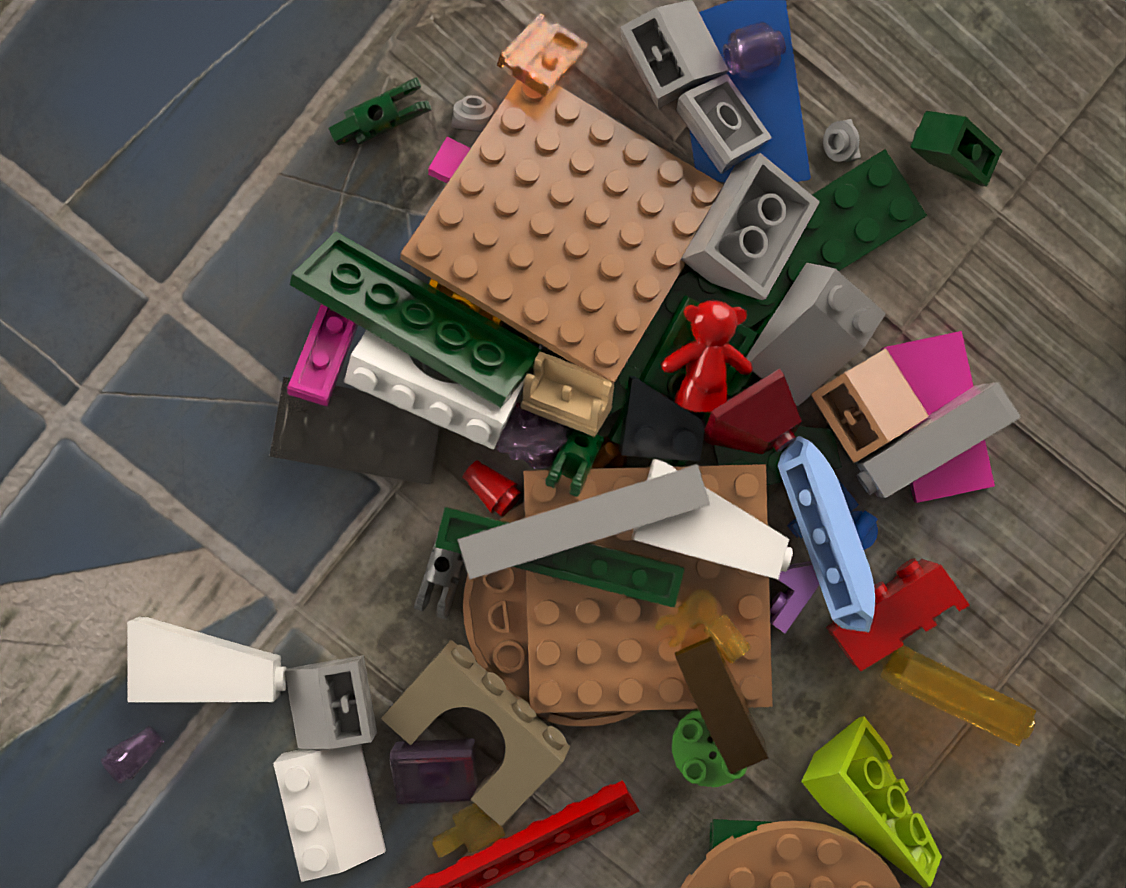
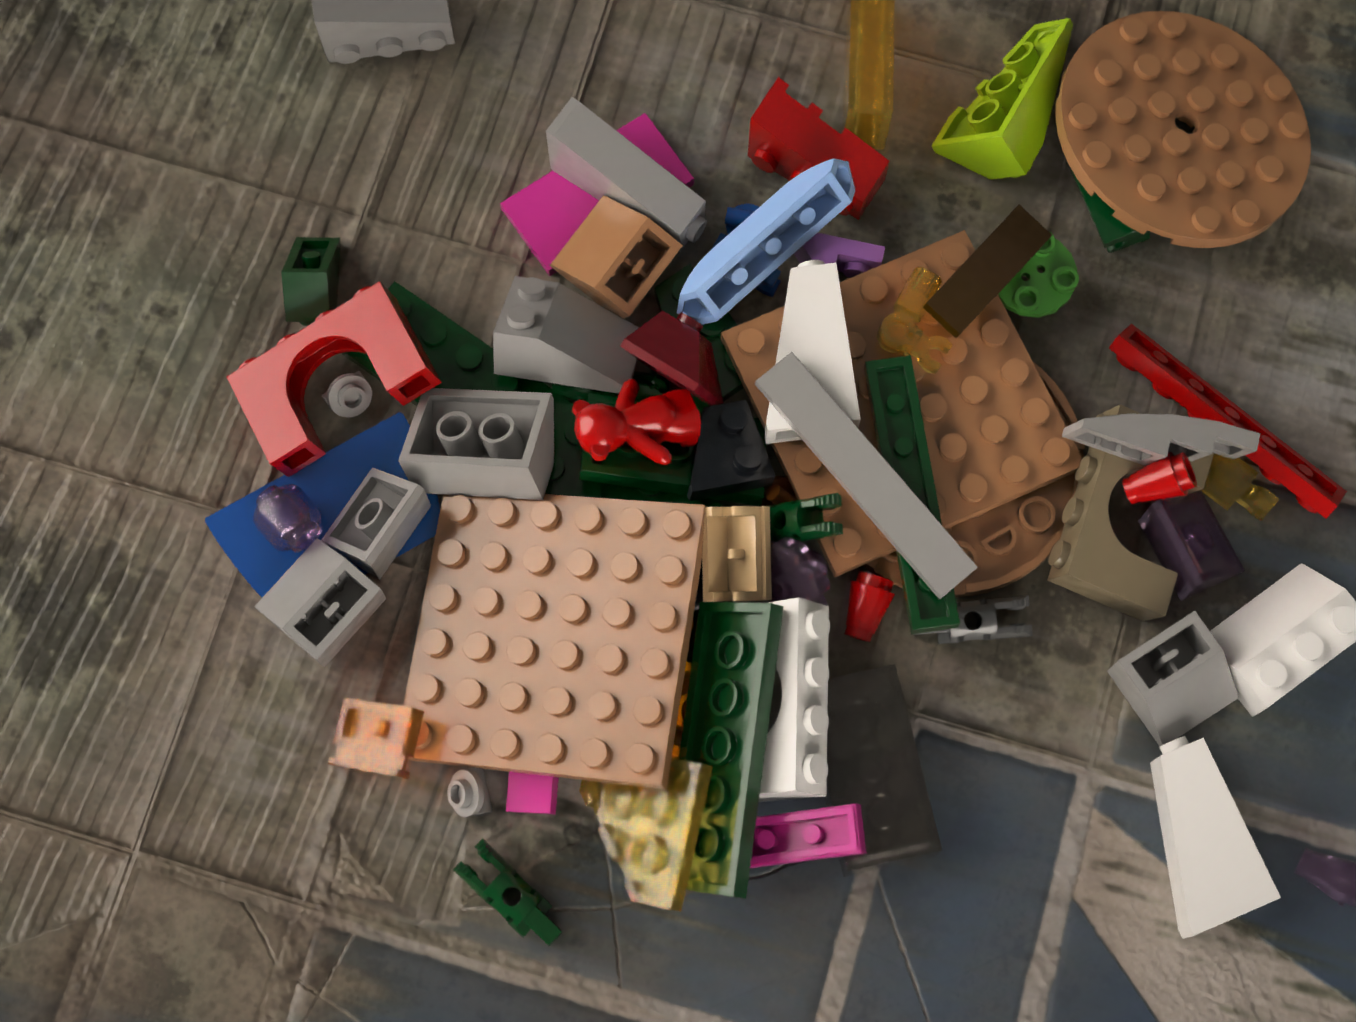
camera: 115 degrees left, 15 degrees down
(371, 239) = (652, 831): none -> clear yellow plate
(486, 767) = (1161, 479): none -> red cone
(521, 774) = (1152, 436): none -> light grey slope
(872, 80) = (275, 383): none -> arch

